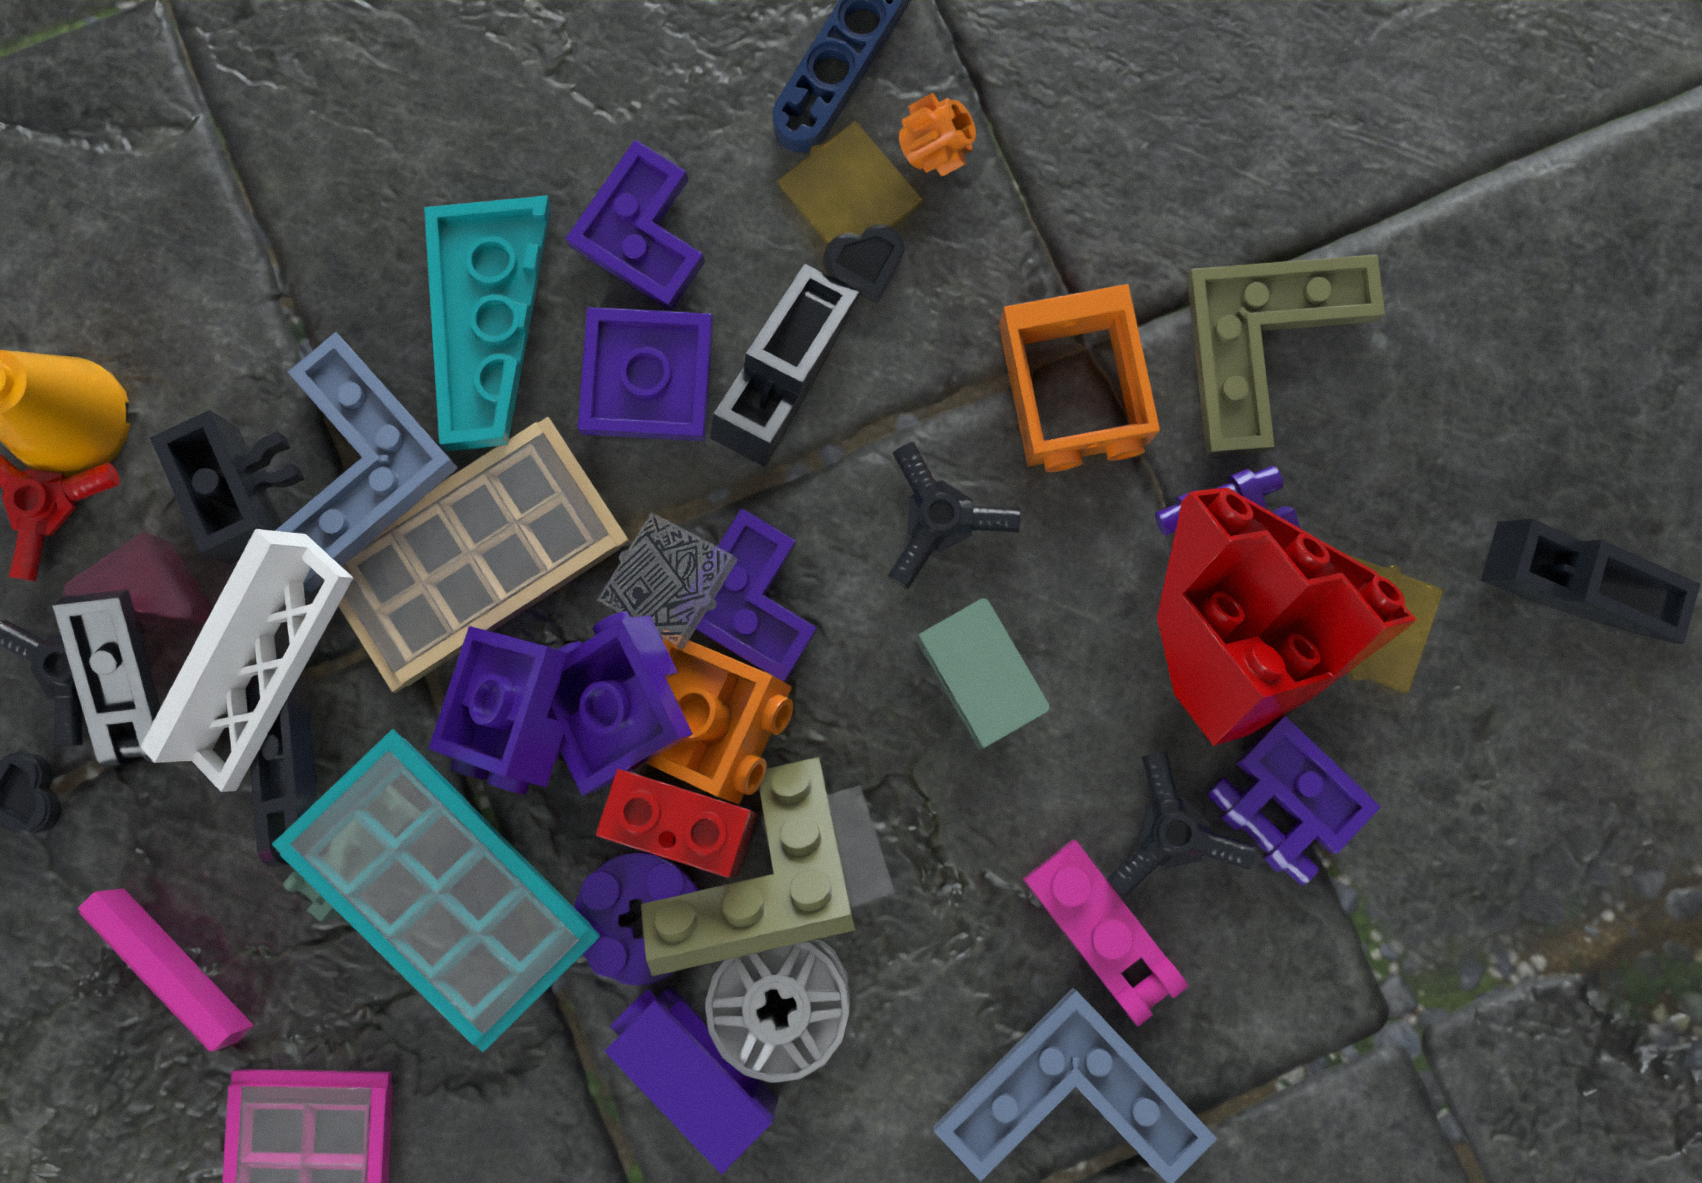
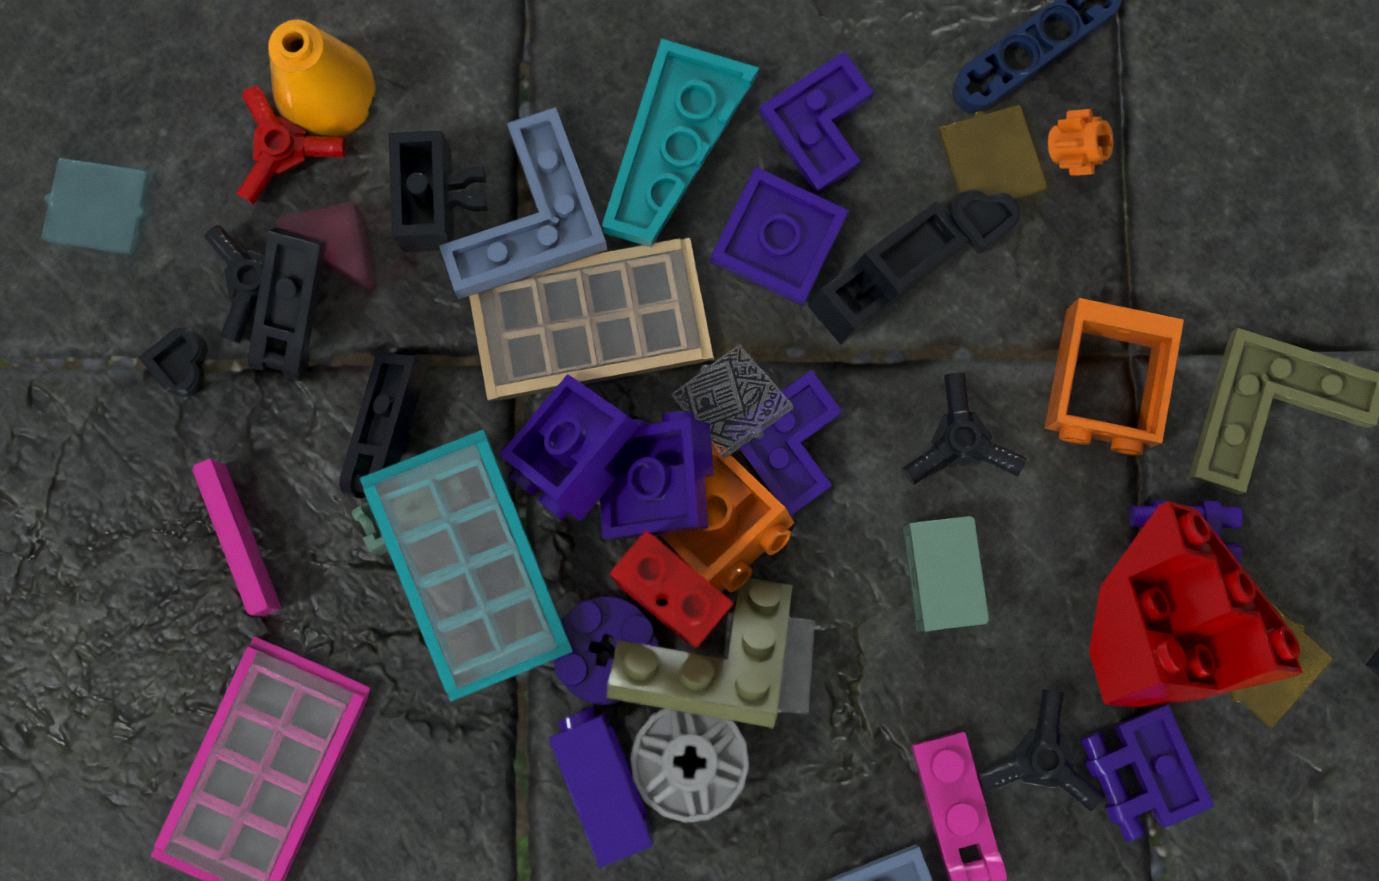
camera: 20 degrees right, 0 degrees up
(240, 644) = (392, 318): white fence -> none

